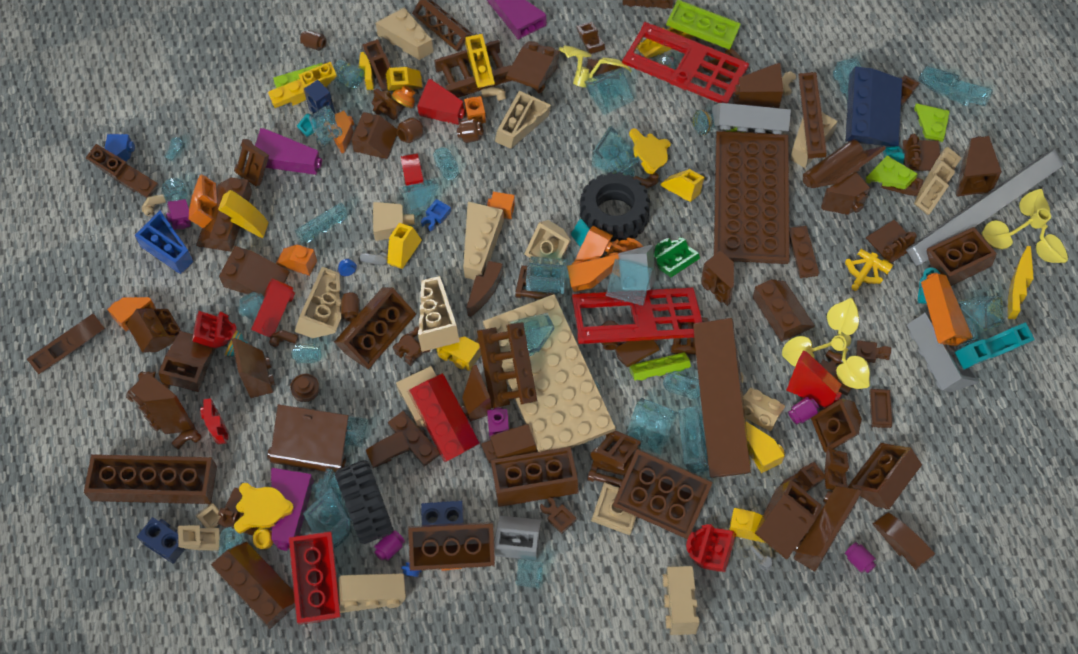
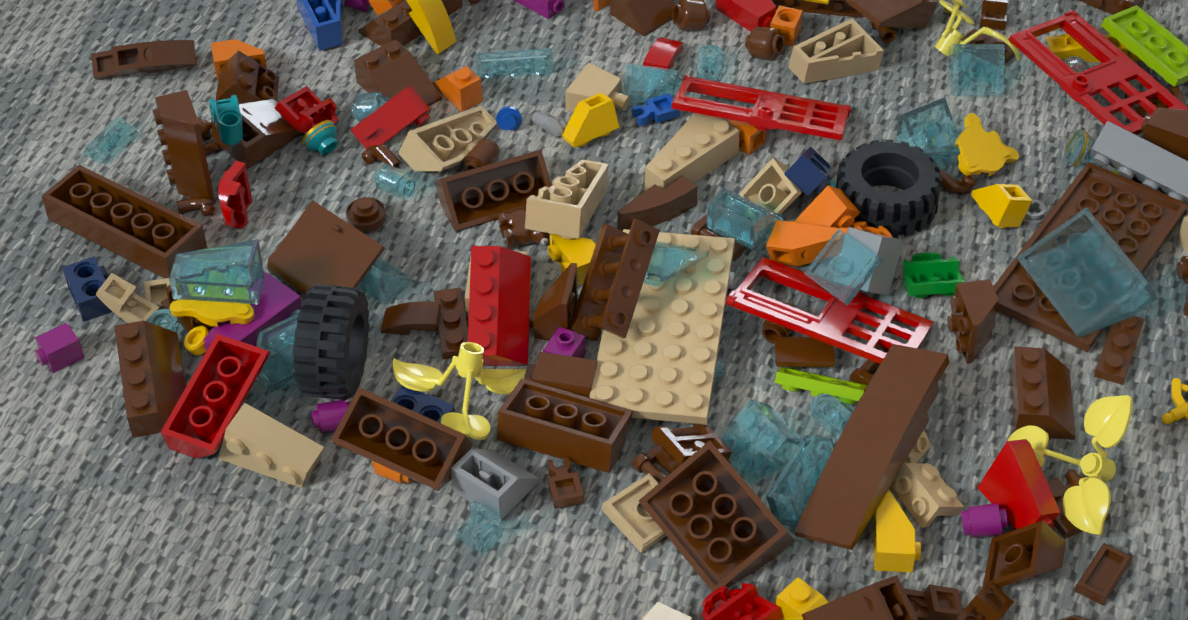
camera: 30 degrees right, 15 degrees down
(88, 418) = (110, 141): none -> clear light blue slope
(170, 367) = (227, 119): none -> teal piece
(175, 595) = (58, 348): none -> magenta brick
(253, 368) = (317, 161): reddish brown slope -> none
(256, 493) = (219, 274): none -> clear light blue wedge
(406, 571) = (338, 455): blue plate -> none
(474, 464) = (469, 366): none -> light yellow plant
(492, 91) = (823, 17): tan arm -> none
(508, 182) = (770, 109): none -> red door
(563, 219) = (810, 172): none -> dark blue brick
(764, 216) = (1087, 275): none -> clear light blue slope
(870, 352) = (1135, 500): reddish brown plate -> none

